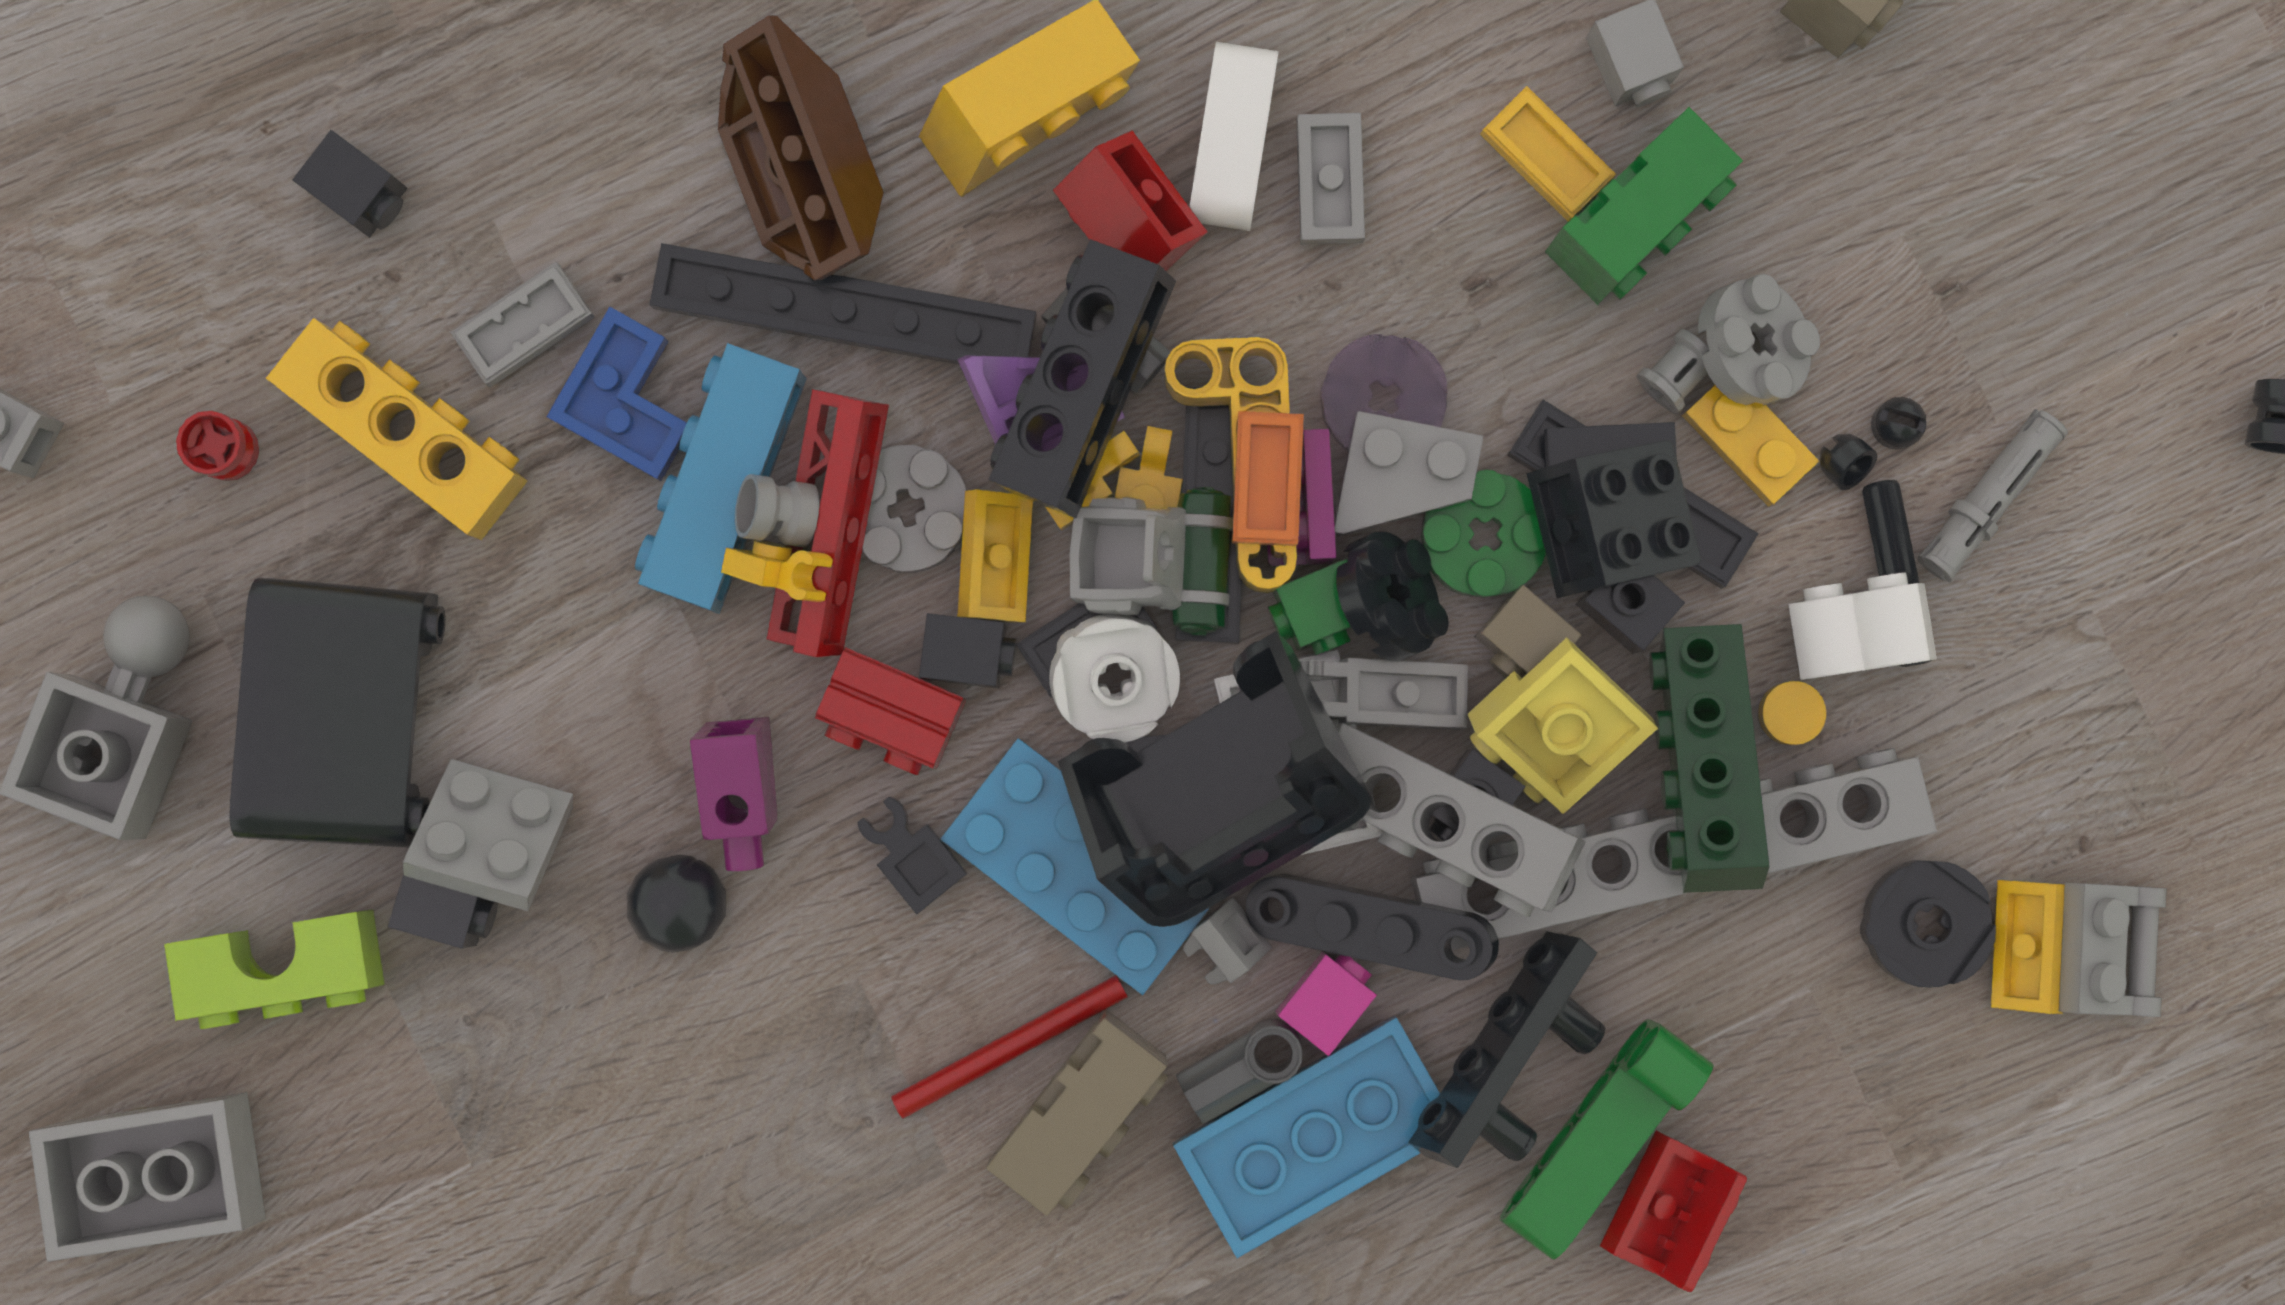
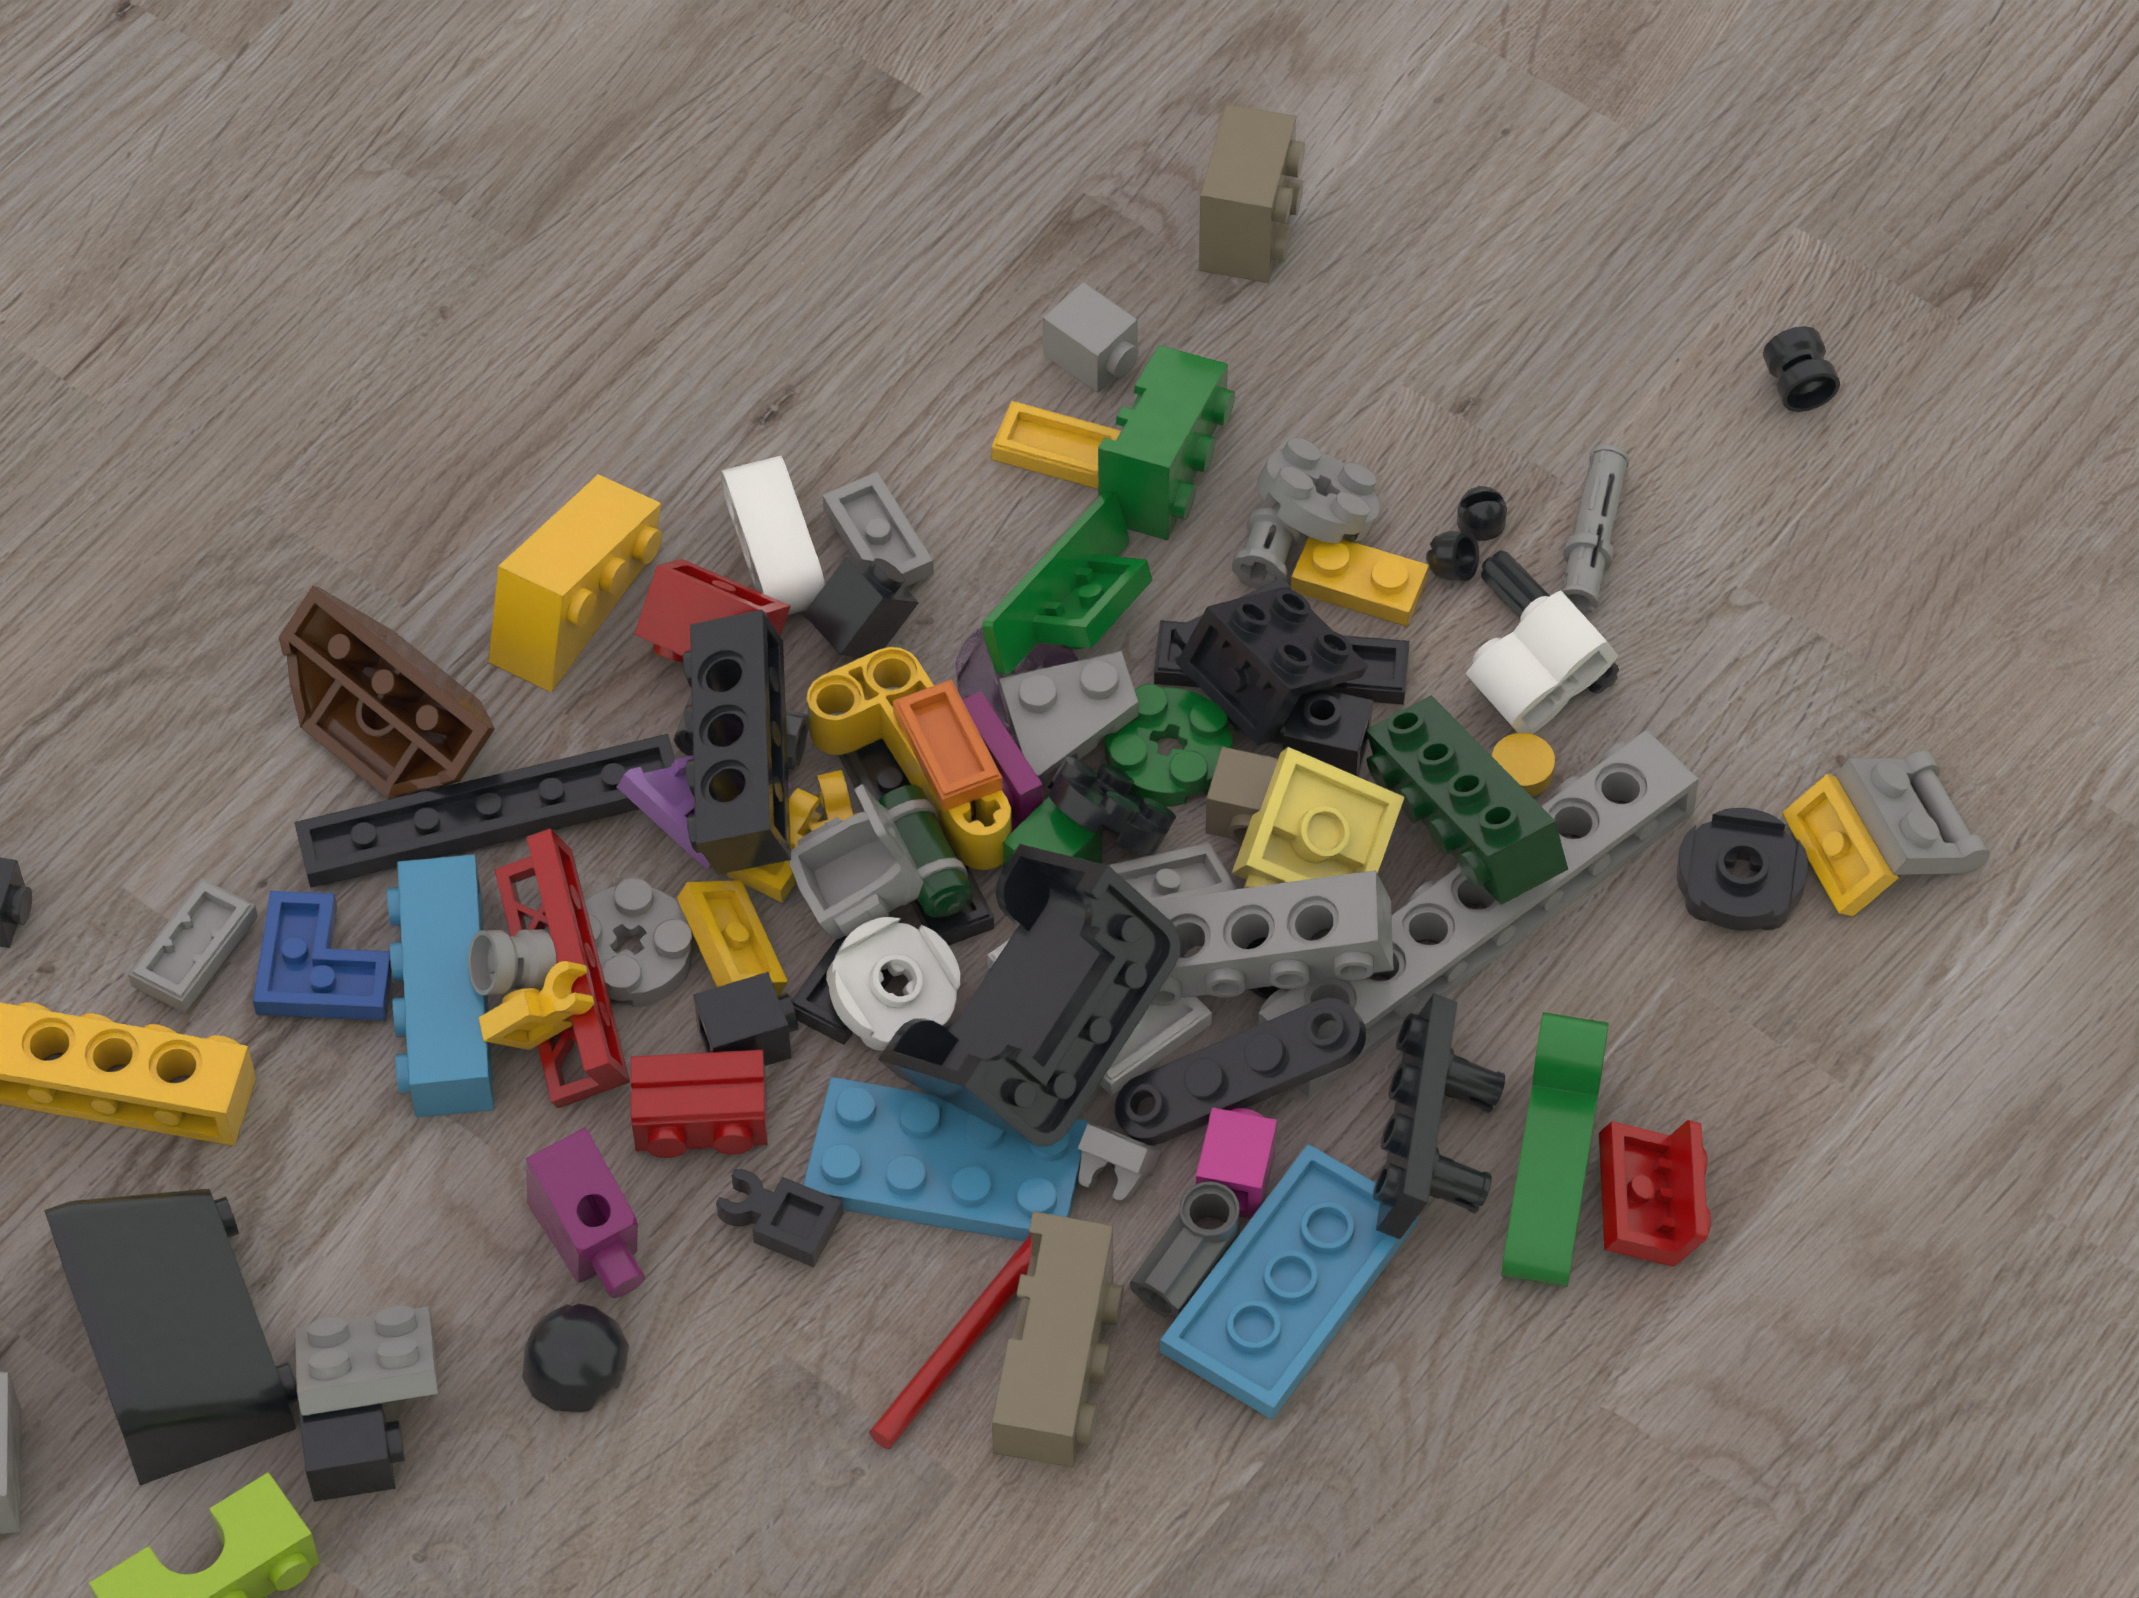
camera: 25 degrees left, 30 degrees down
(1271, 264) = (861, 606): none -> black brick
(1474, 349) = (1070, 591): none -> green bracket

